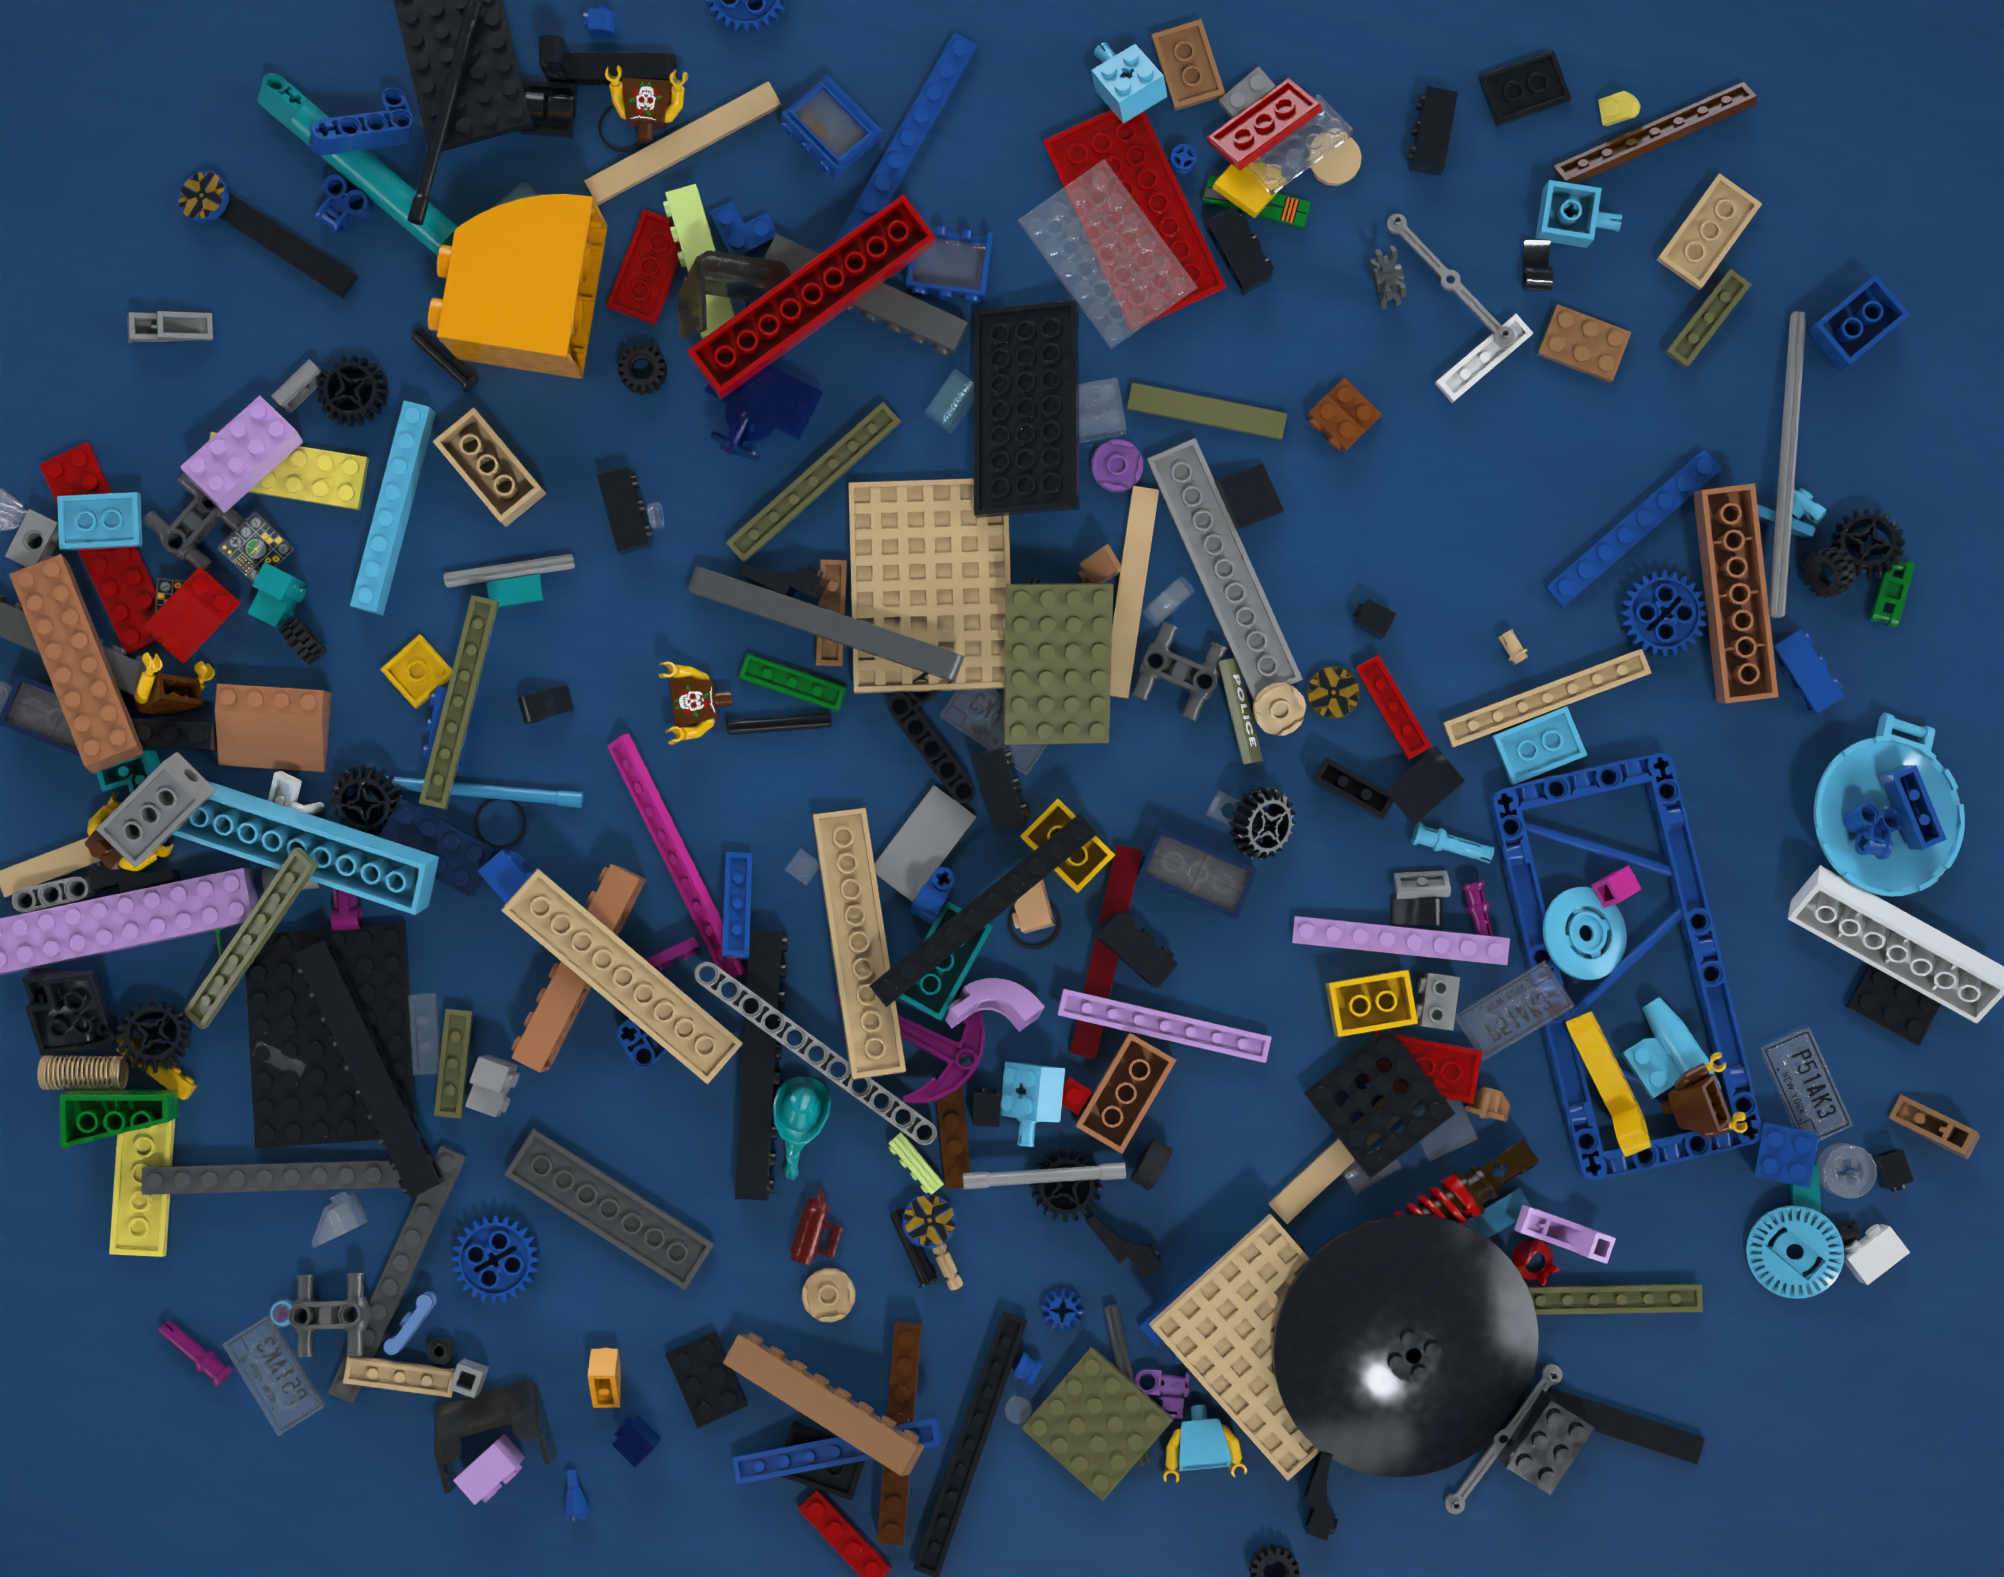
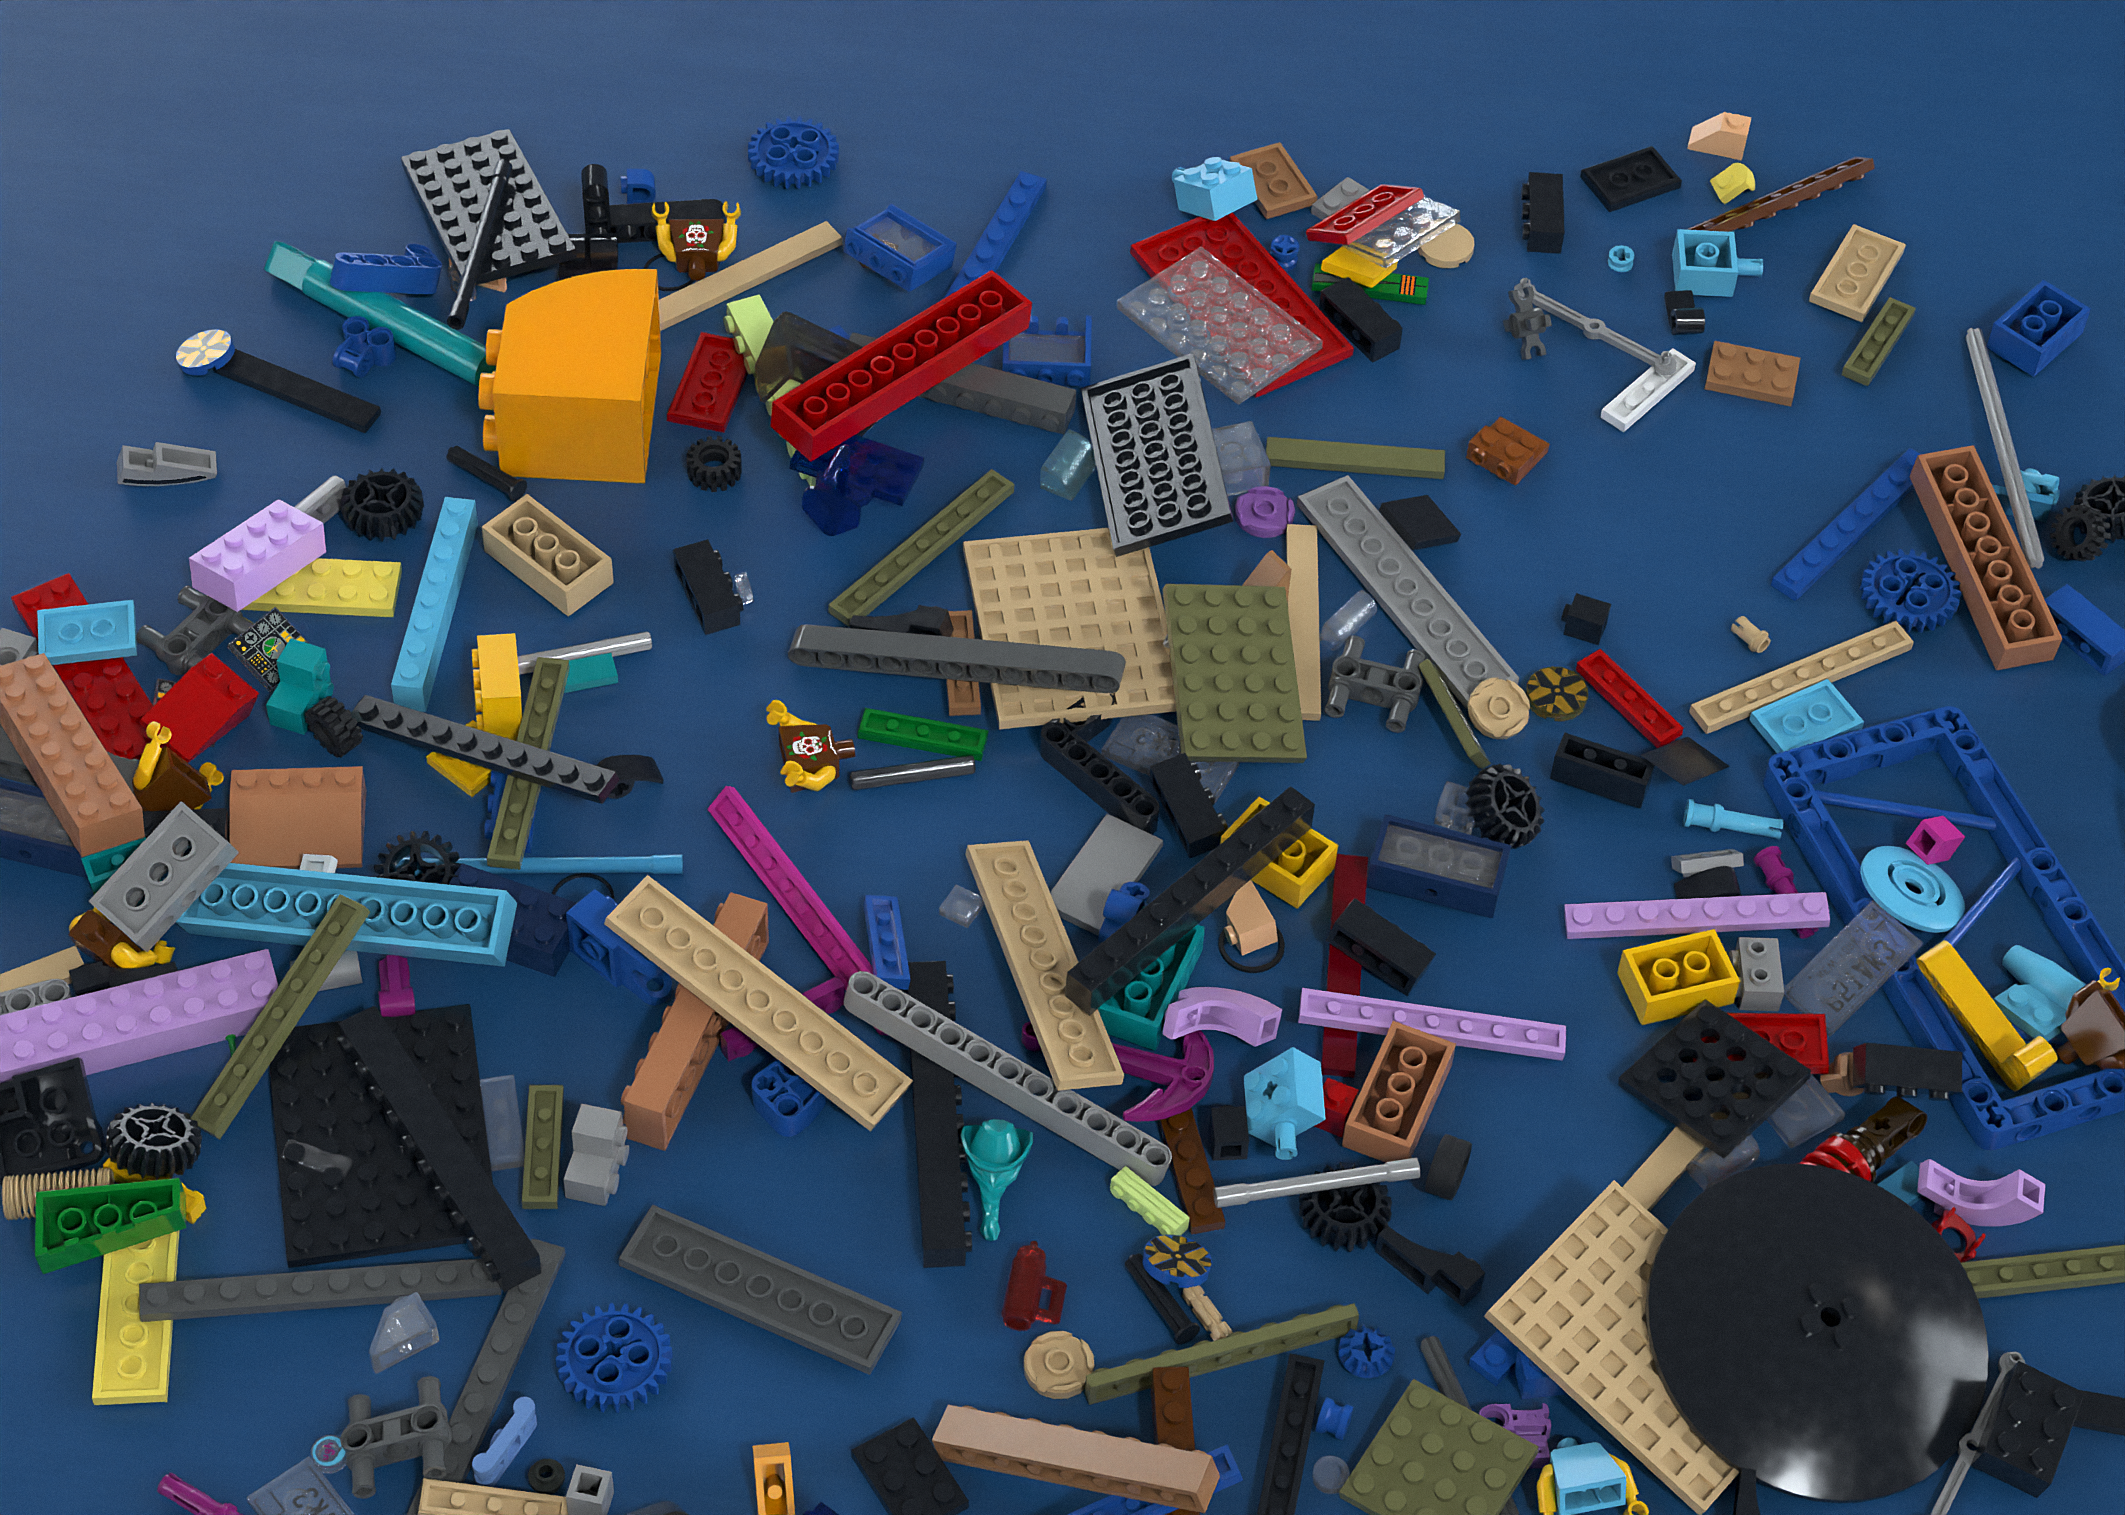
camera: 10 degrees left, 35 degrees down
(421, 688) = (485, 749): none -> black plate
(438, 619) = (497, 685): none -> yellow brick
(939, 1305) = (1225, 1352): none -> olive plate
(1501, 188) = (1623, 252): none -> medium azure bush
(1532, 1126) = (1907, 1071): none -> black brick
(1620, 45) = (1721, 135): none -> light nougat slope

